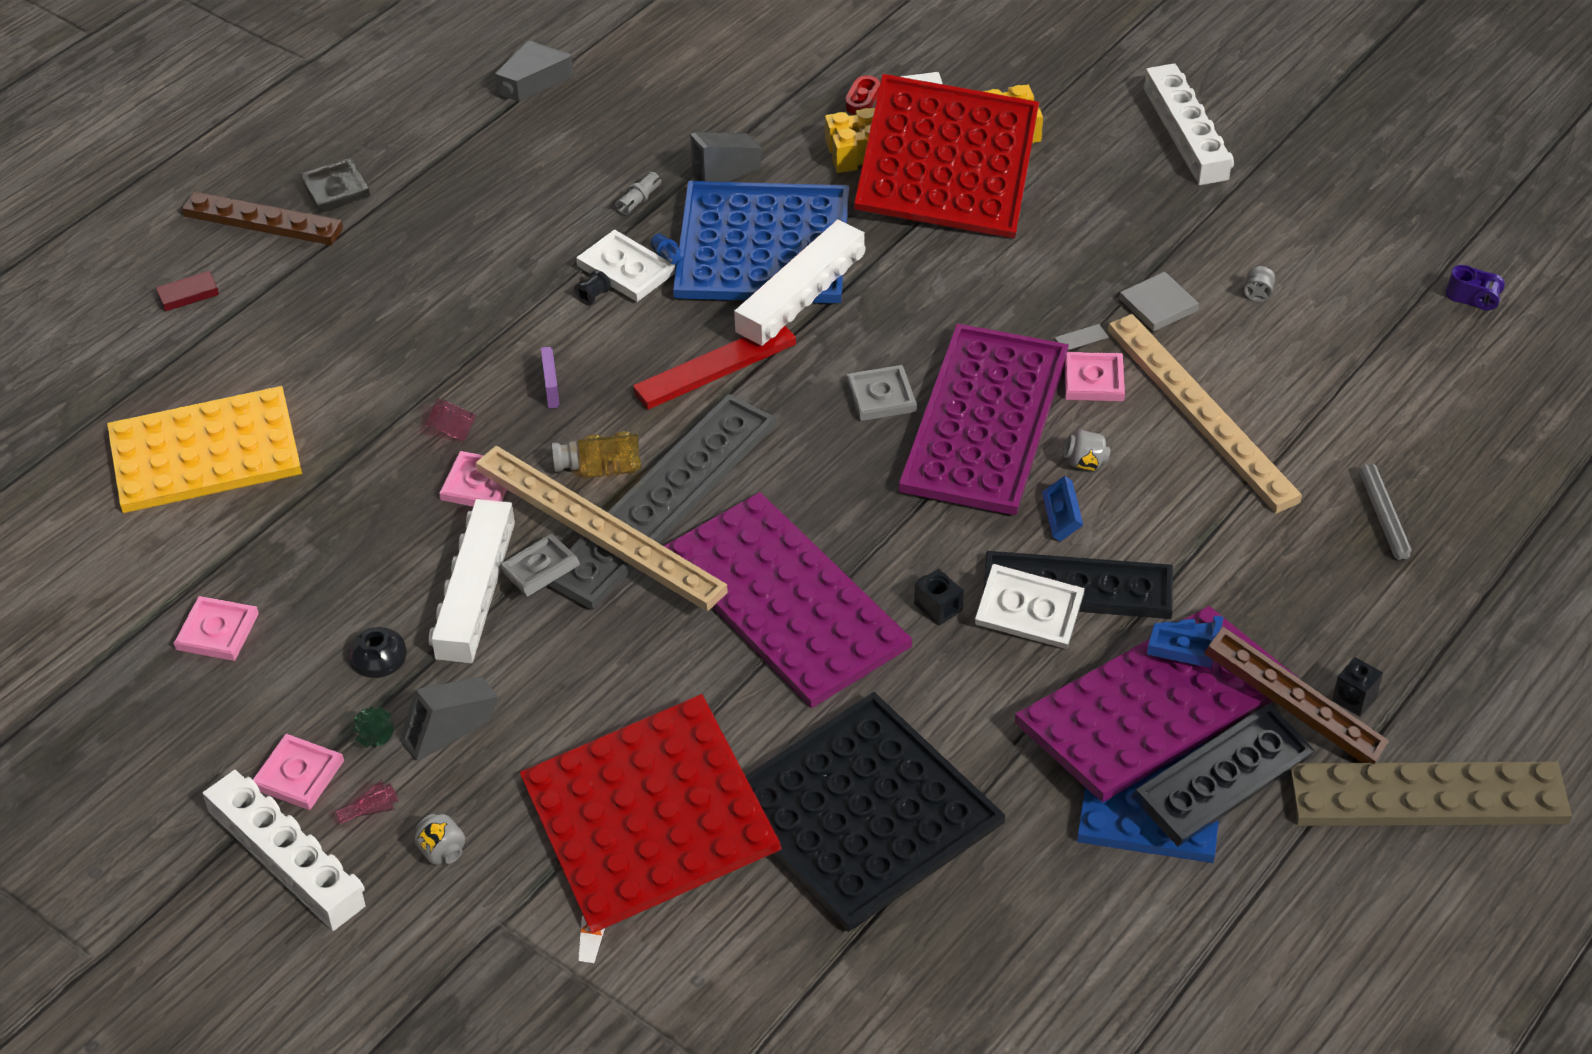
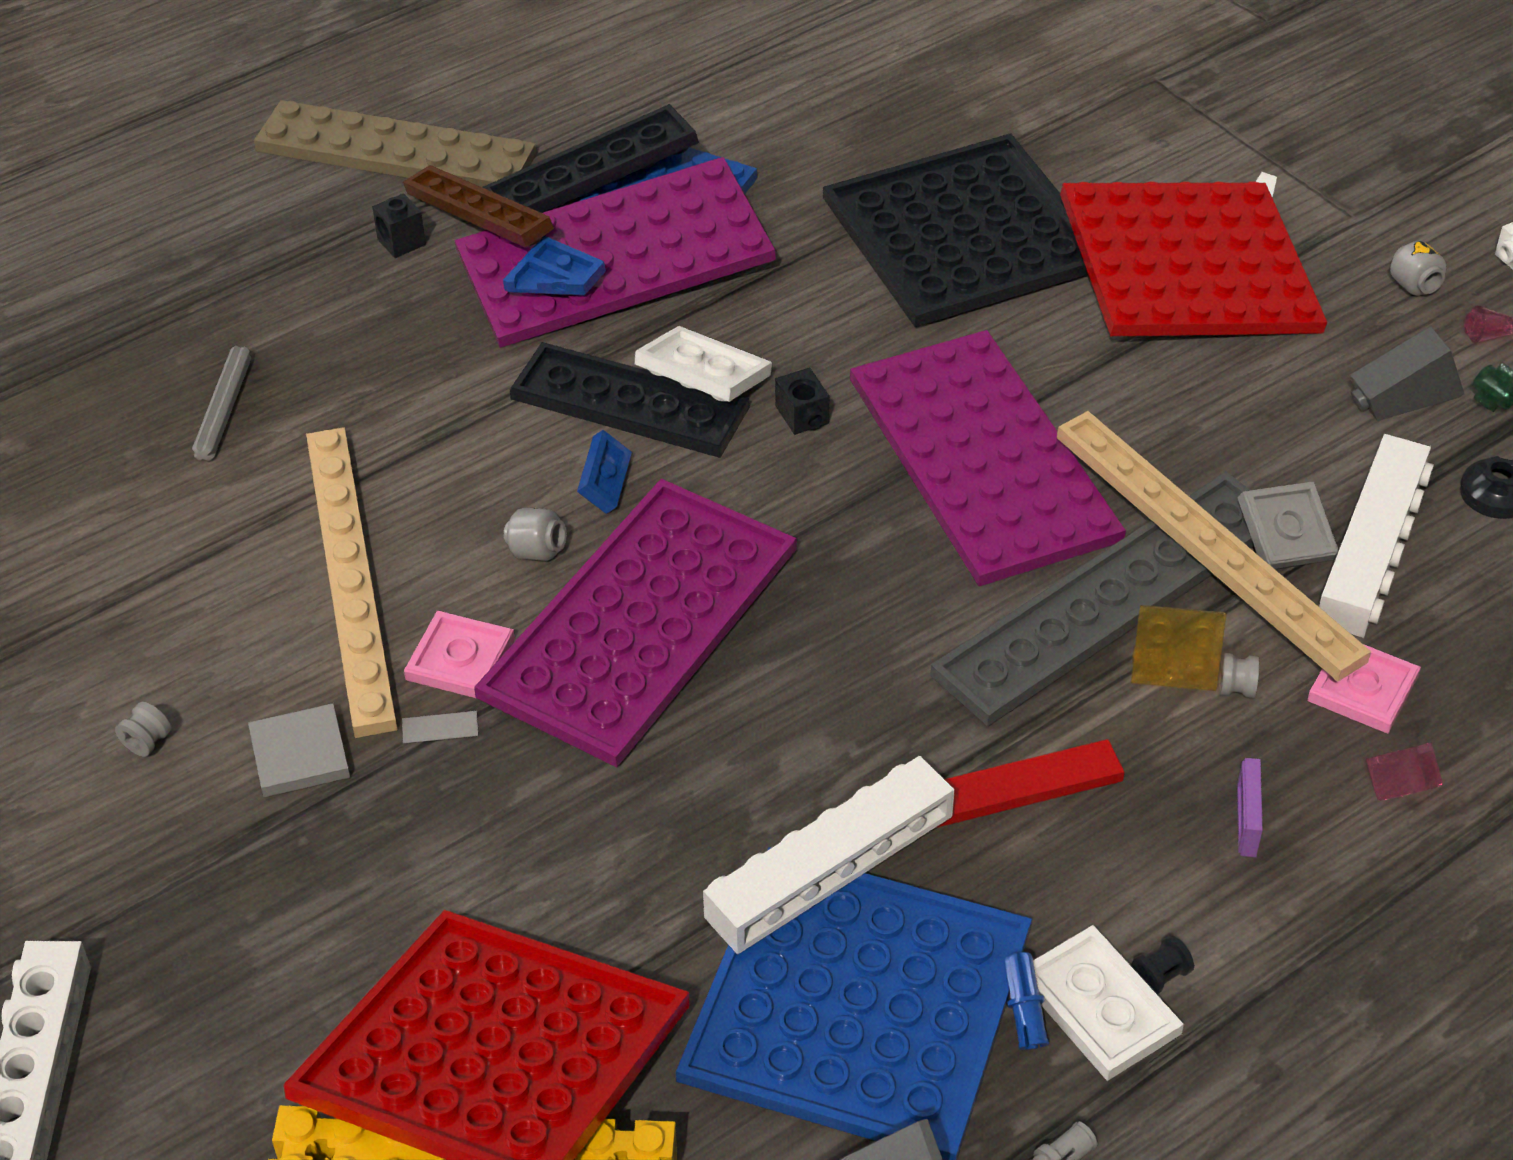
camera: 165 degrees left, 0 degrees up
(881, 393) = (764, 695): light grey tile -> none

